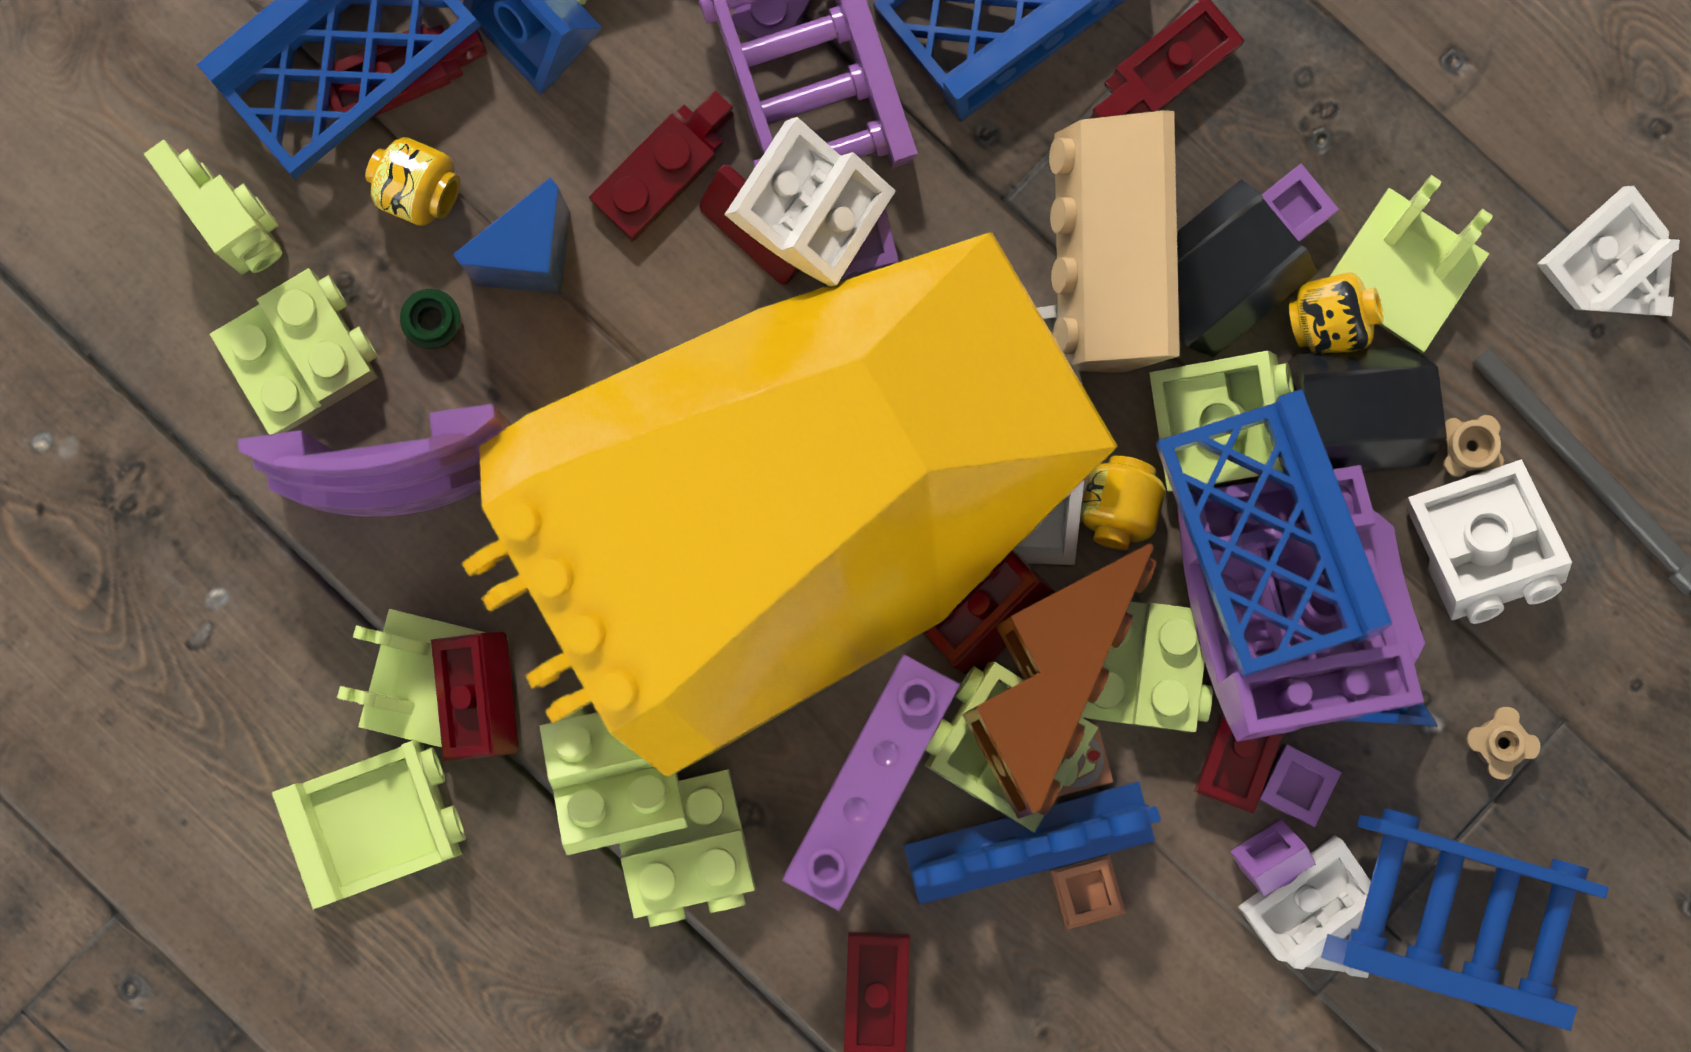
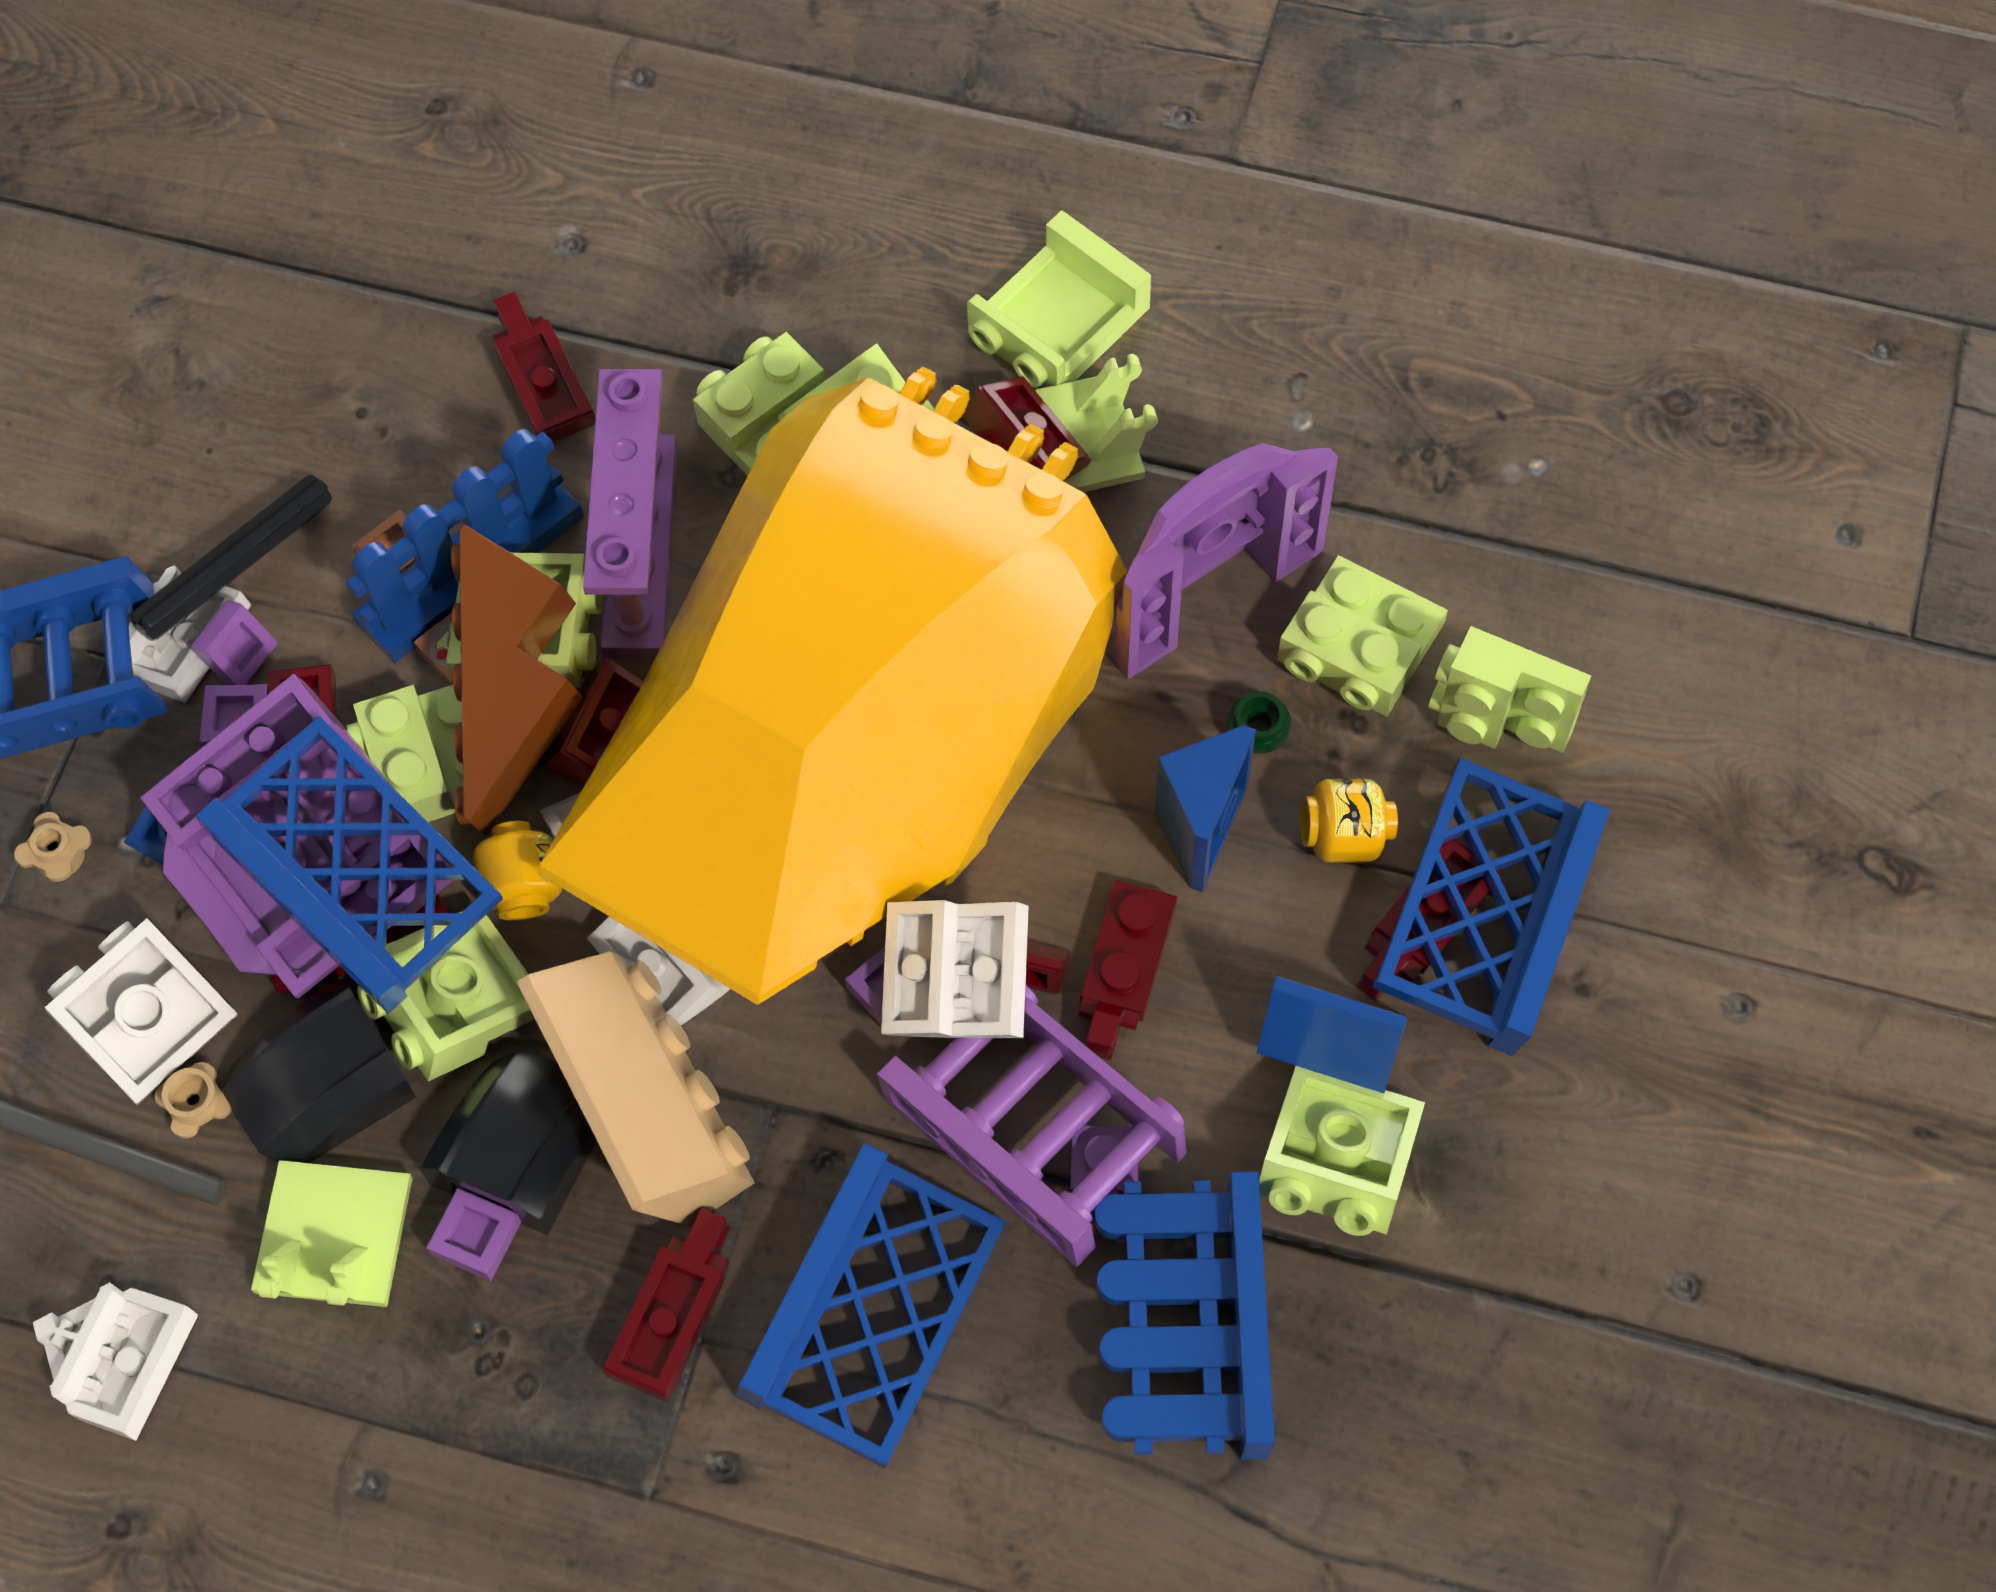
camera: 160 degrees right, 20 degrees down
(1239, 950) = (231, 558): none -> black axle
(1335, 314) = (383, 1140): yellow head -> none

